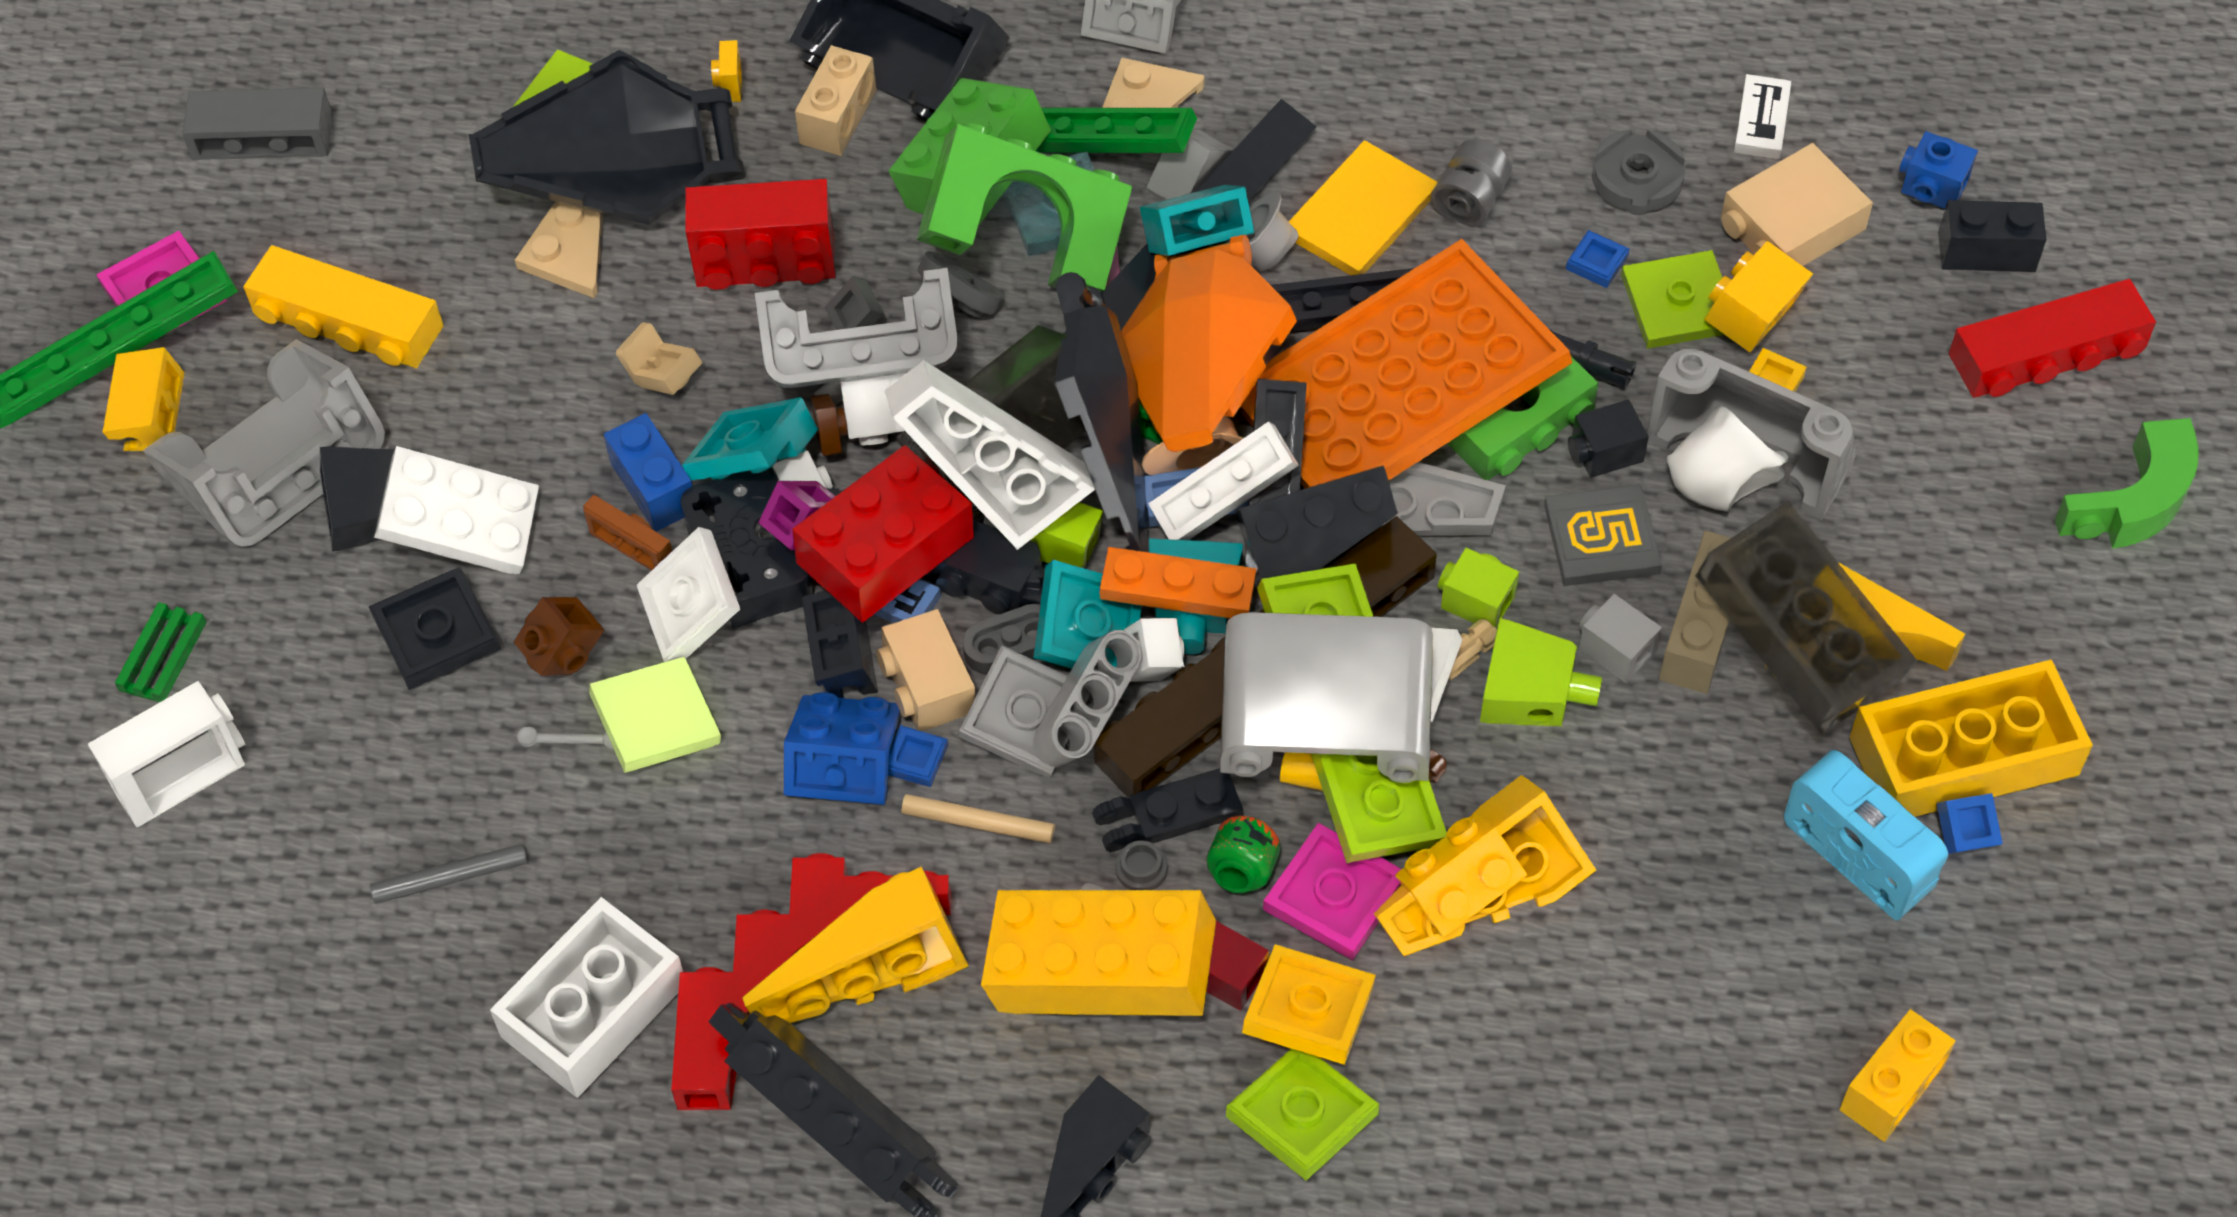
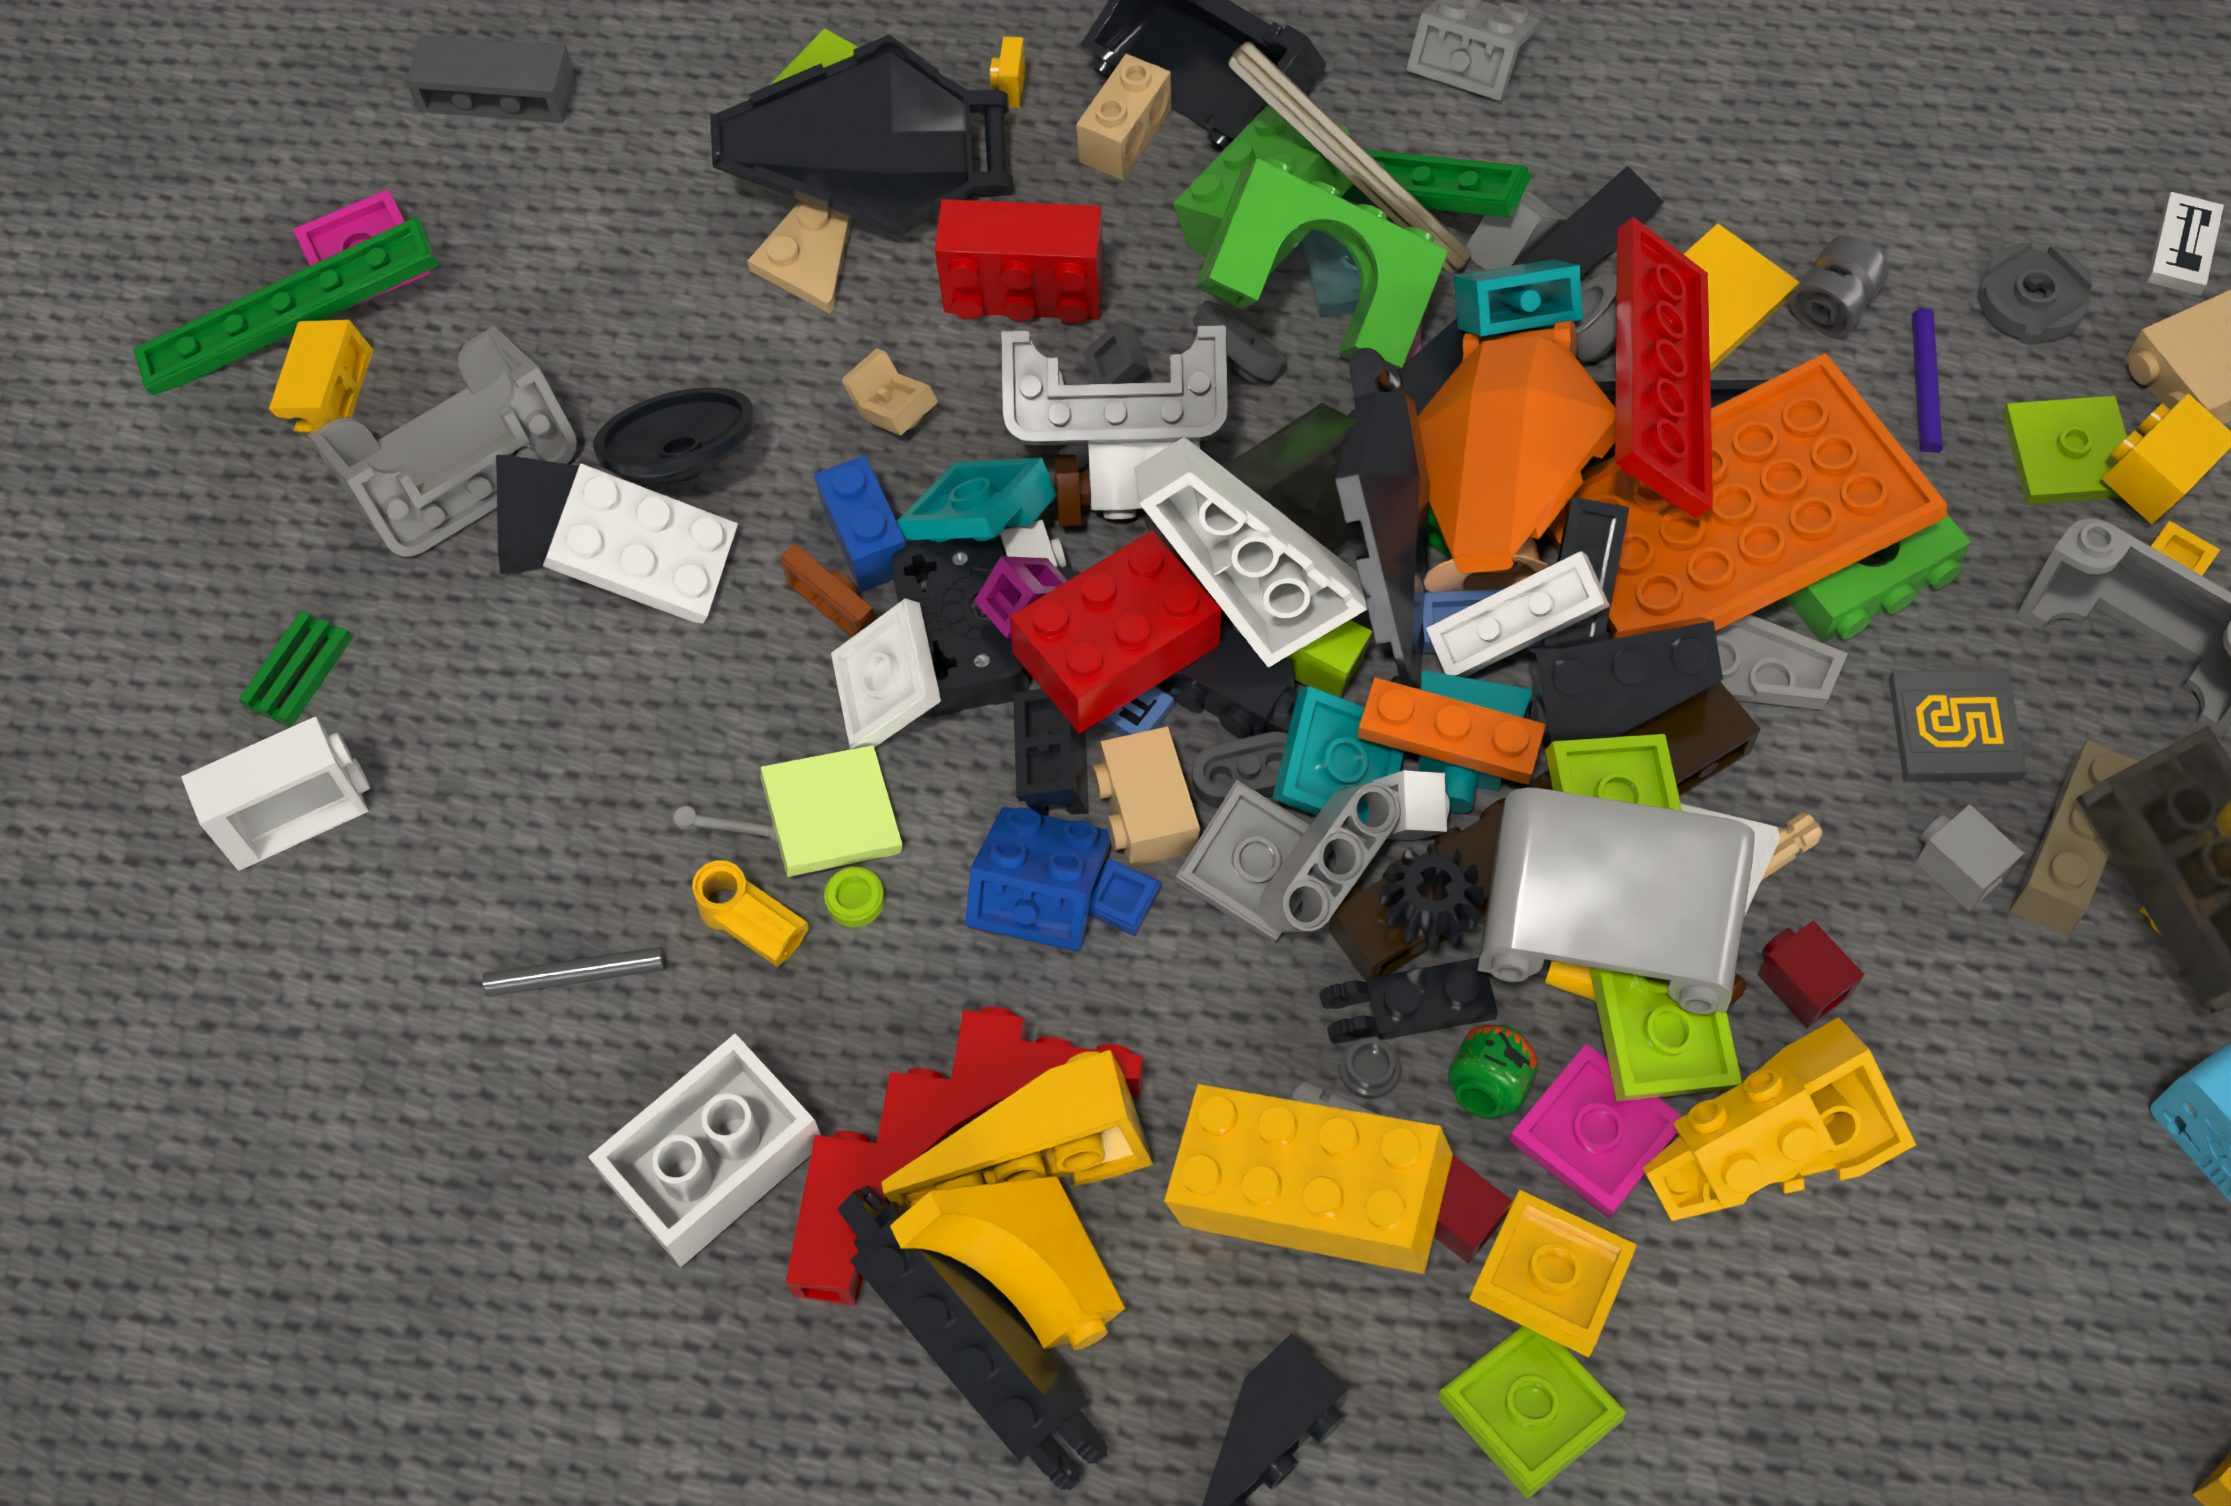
camera: 10 degrees right, 5 degrees up
(343, 307) = (552, 295): yellow brick -> none
(434, 628) = (598, 677): black plate -> none
(474, 414) = (675, 434): none -> black dish
(558, 636) = (733, 705): reddish brown brick -> none
(595, 807) = (750, 915): none -> yellow piece
(684, 783) = (854, 897): none -> lime tile
(869, 1035) = (1027, 1246): none -> yellow arch
(978, 818) = (1186, 983): tan bar -> none
(1032, 111) = (1343, 151): none -> dark tan axle
(1150, 86) = (1479, 136): tan wing -> none
(1175, 716) = (1437, 876): none -> black gear
(1325, 265) = (1663, 370): none -> red plate
(1478, 587) = (1803, 773): lime brick -> none
(1496, 745) = (1808, 972): none -> dark red brick
(1533, 678) = (1863, 892): lime torso -> none
(1554, 254) = (1927, 381): none -> dark purple bar
(1597, 259) = (1977, 391): blue tile -> none
(1598, 362) = (1973, 517): black pin -> none
(1608, 439) = (1975, 610): black brick -> none
(1723, 462) = (2113, 654): white piece -> none

